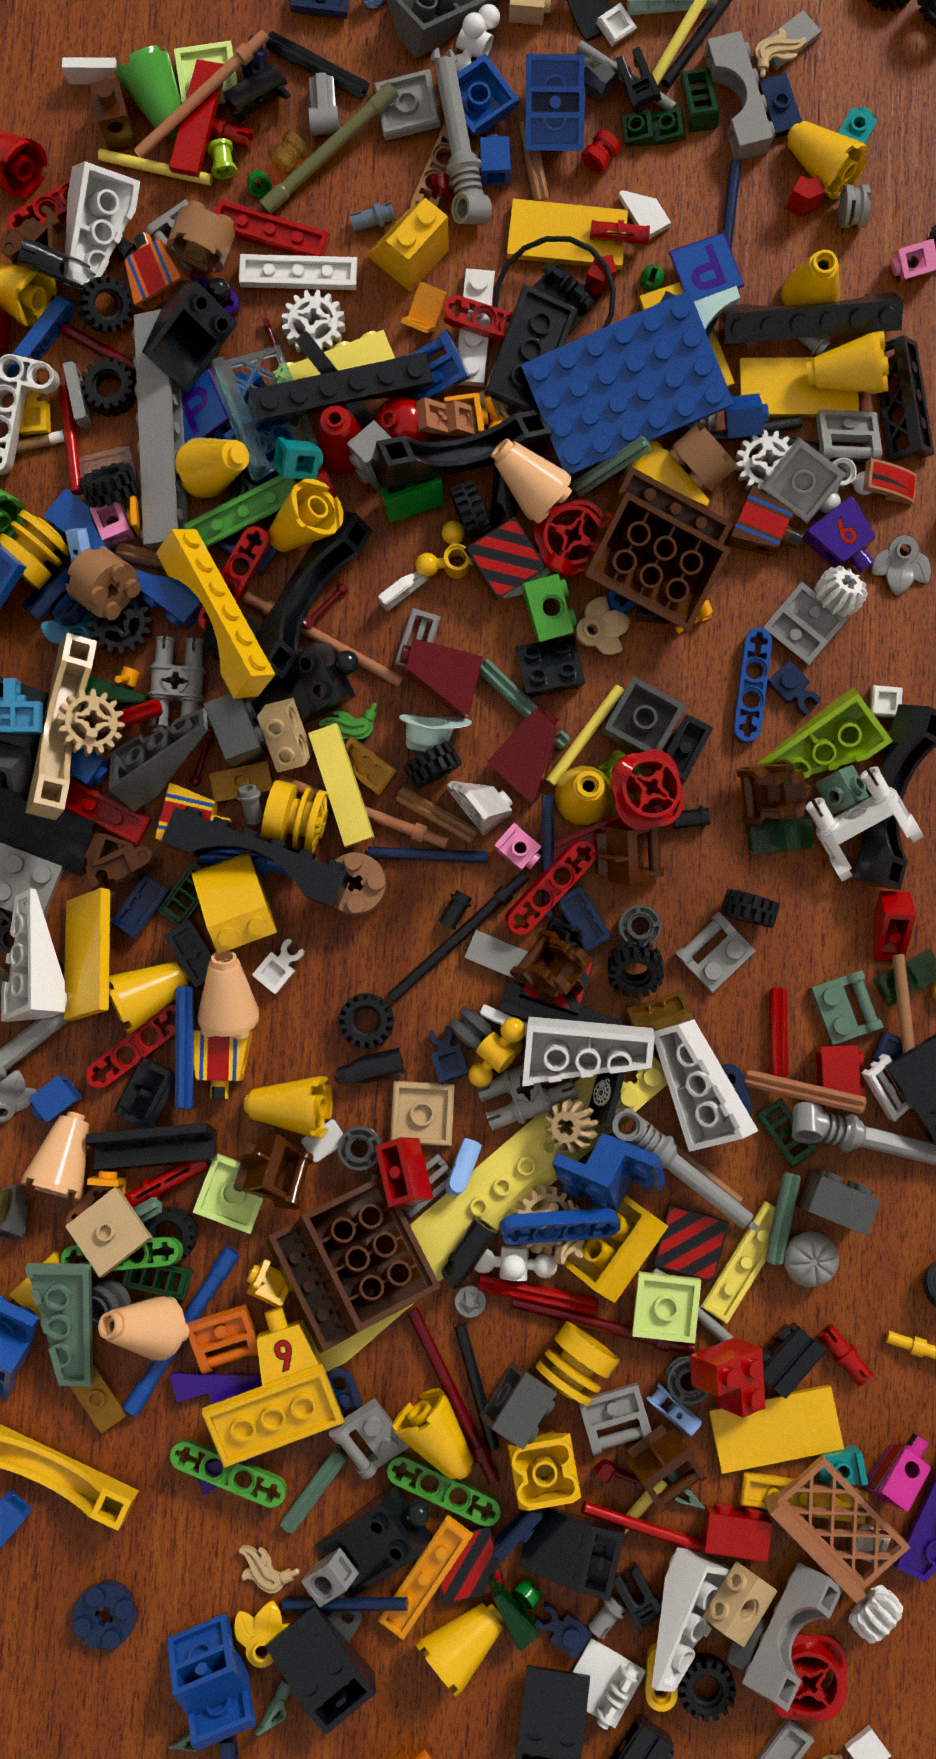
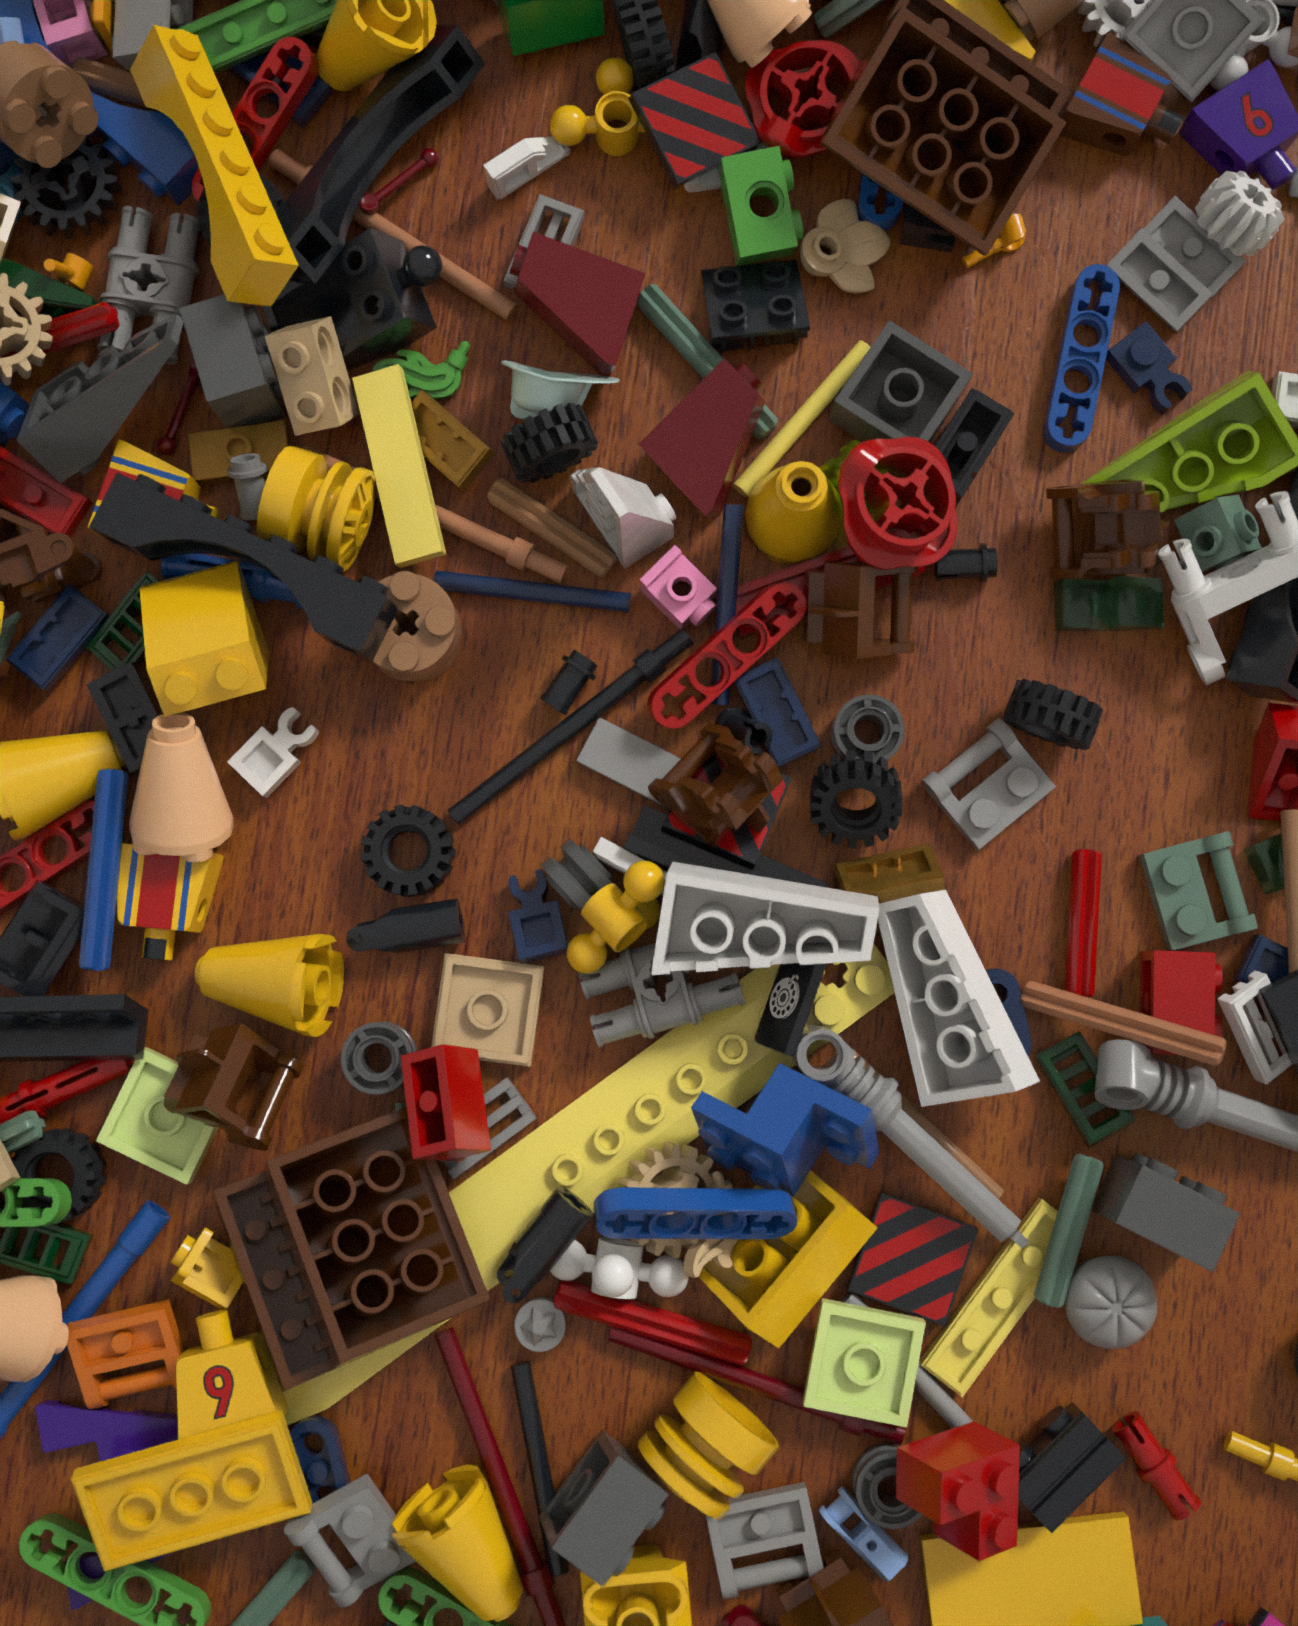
camera: 10 degrees right, 0 degrees up
(322, 1147) = (322, 1050): white sticker -> none
(462, 1167) = (545, 1102): light blue bar -> none
(560, 1124) = (745, 1053): tan gear -> none

